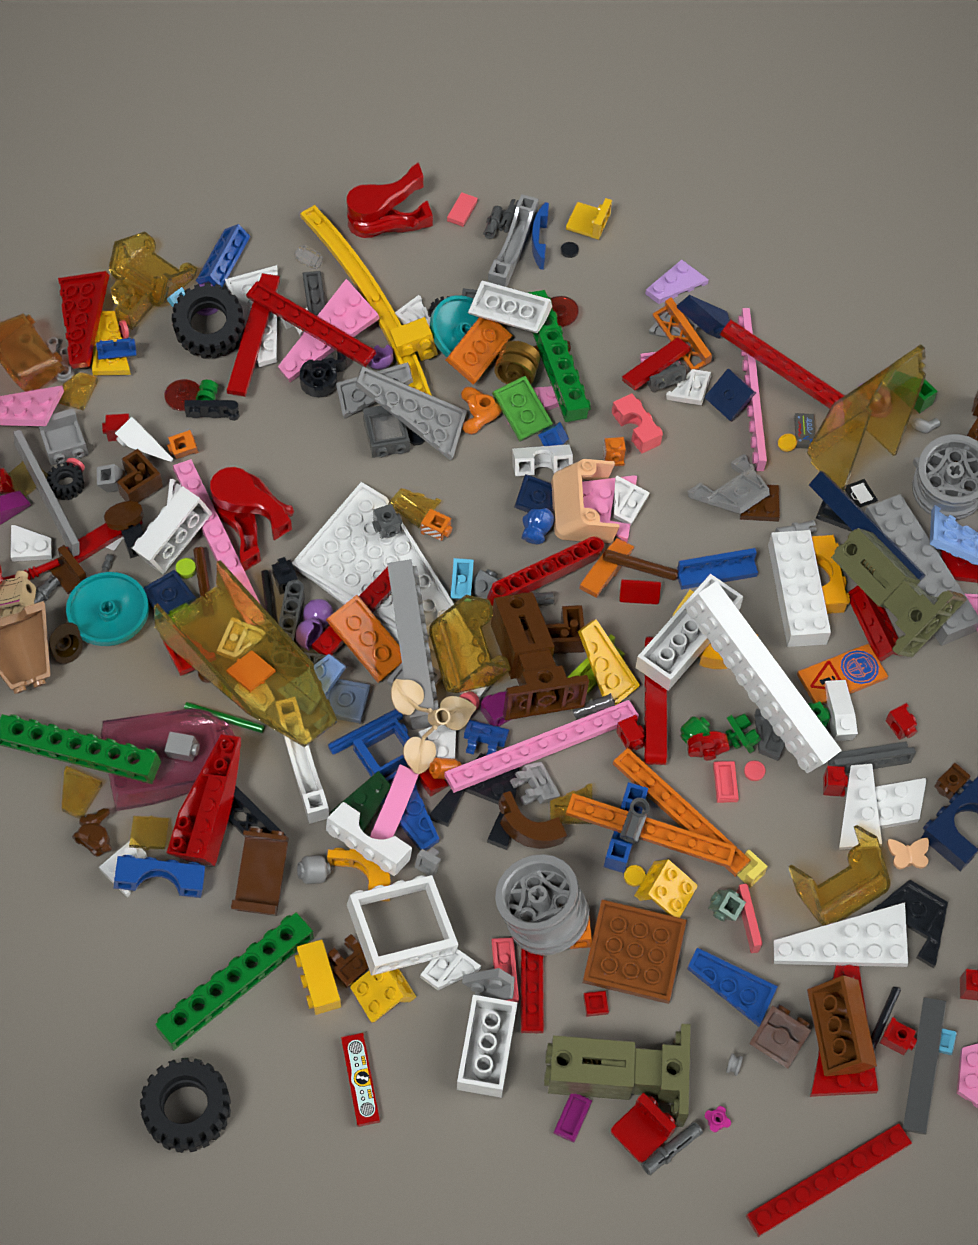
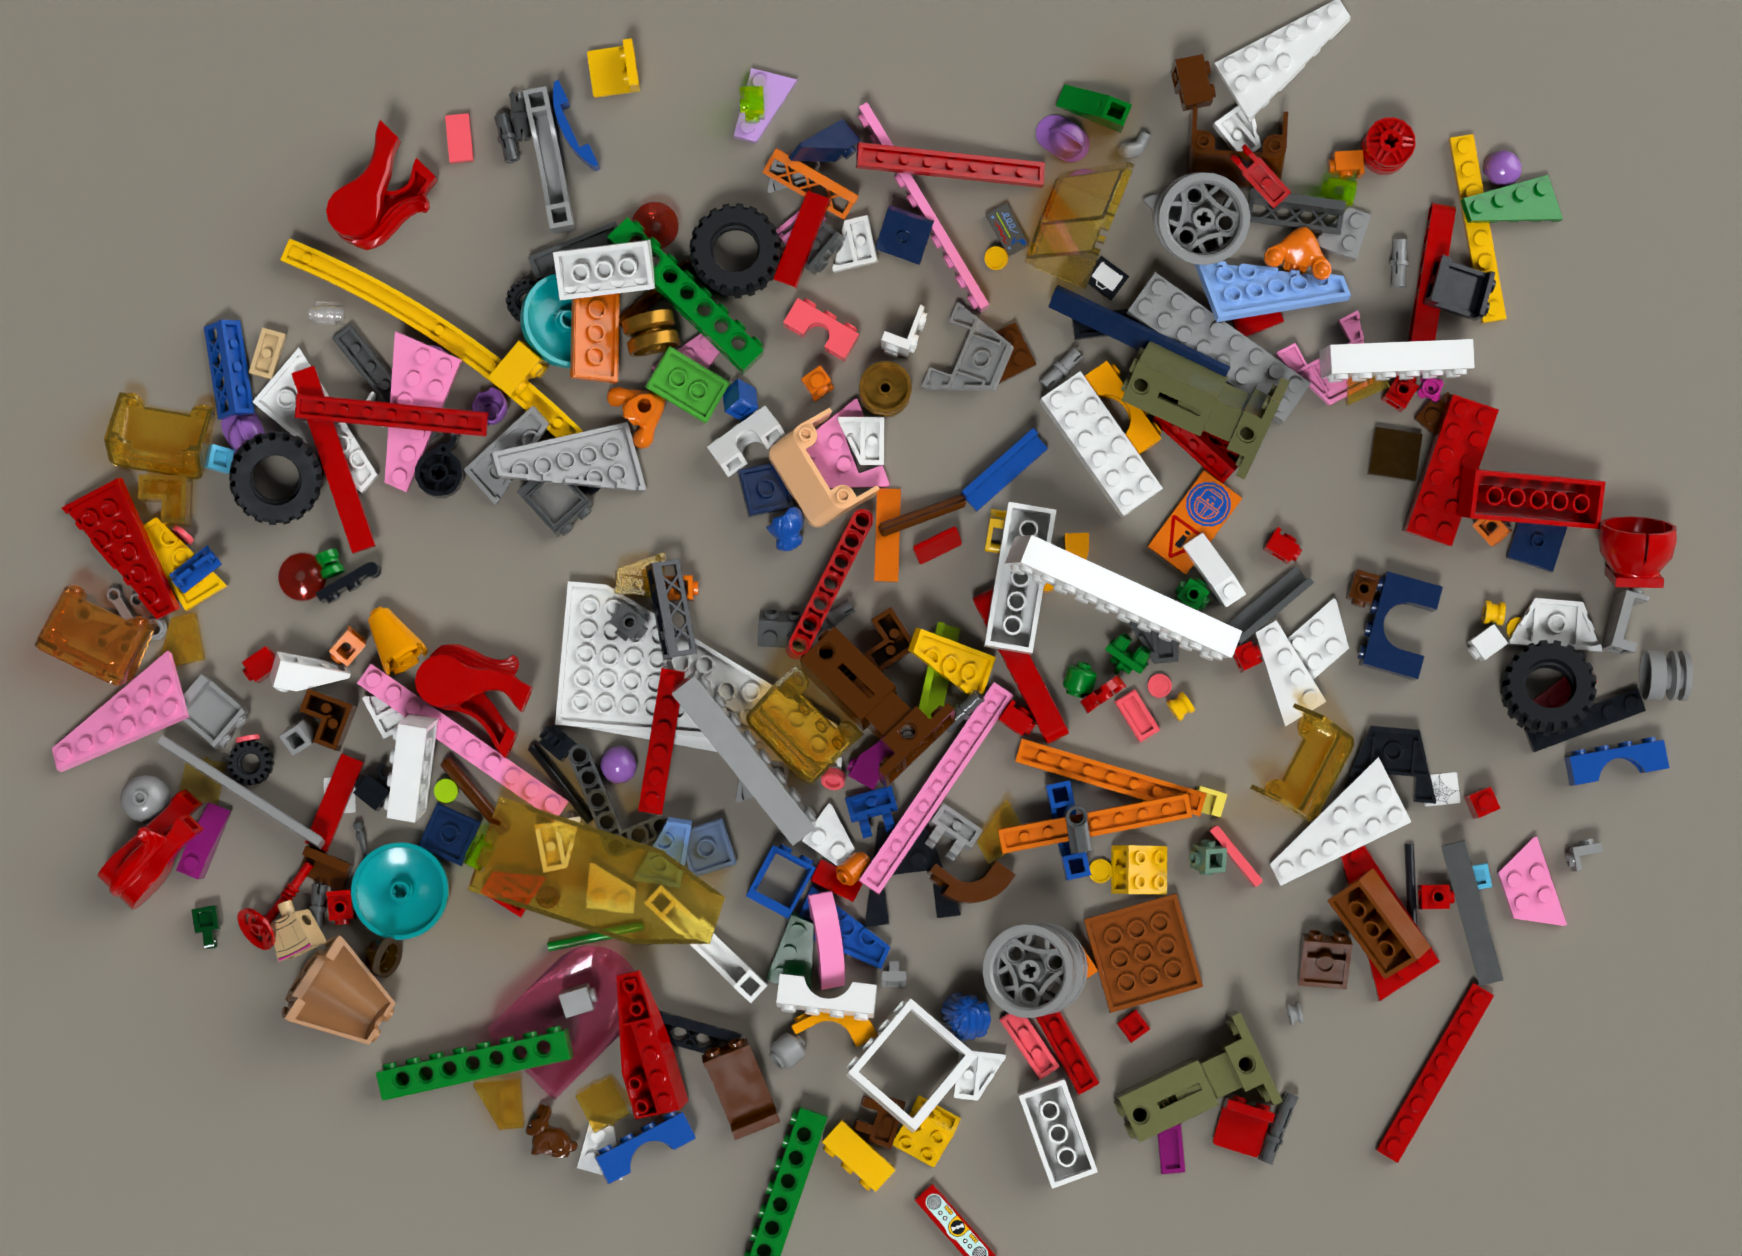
camera: 30 degrees left, 25 degrees up
(29, 545) = (264, 859): white wing -> none
(57, 598) = (345, 898): none -> red brick
(123, 515) = (344, 773): reddish brown tile -> none
(215, 455) = (394, 641): none -> light orange cone
(250, 671) = (596, 879): orange piece -> none
(254, 260) = (267, 353): none -> tan plate
(308, 632) = (623, 797): medium lavender hair -> none
(347, 740) = (747, 869): blue axle -> none
(366, 638) = (688, 770): orange tile -> none
(412, 311) = (496, 326): white wing -> none
(414, 529) = (662, 610): none -> fence
(452, 712) = (779, 834): tan plant -> none
(462, 578) = (746, 643): medium azure slope -> none
(467, 916) = (966, 1016): none -> blue hair
(491, 983) = (1029, 1074): light grey bracket -> none
(569, 249) = (614, 124): black piece -> none
(609, 329) = (732, 219): none -> black tyre
(661, 476) = (877, 377): none -> pearl gold wheel
(670, 272) = (752, 103): none -> clear neon green brick
(691, 455) = (896, 345): none -> white bracket
(717, 1125) = (1312, 1075): dark pink plate -> none
(738, 987) = (1262, 933): blue wing -> none
(763, 789) = (1180, 706): none -> yellow wheel
(909, 855) = (1357, 695): light nougat animal -> none
(947, 963) = (1445, 789): none -> white sticker

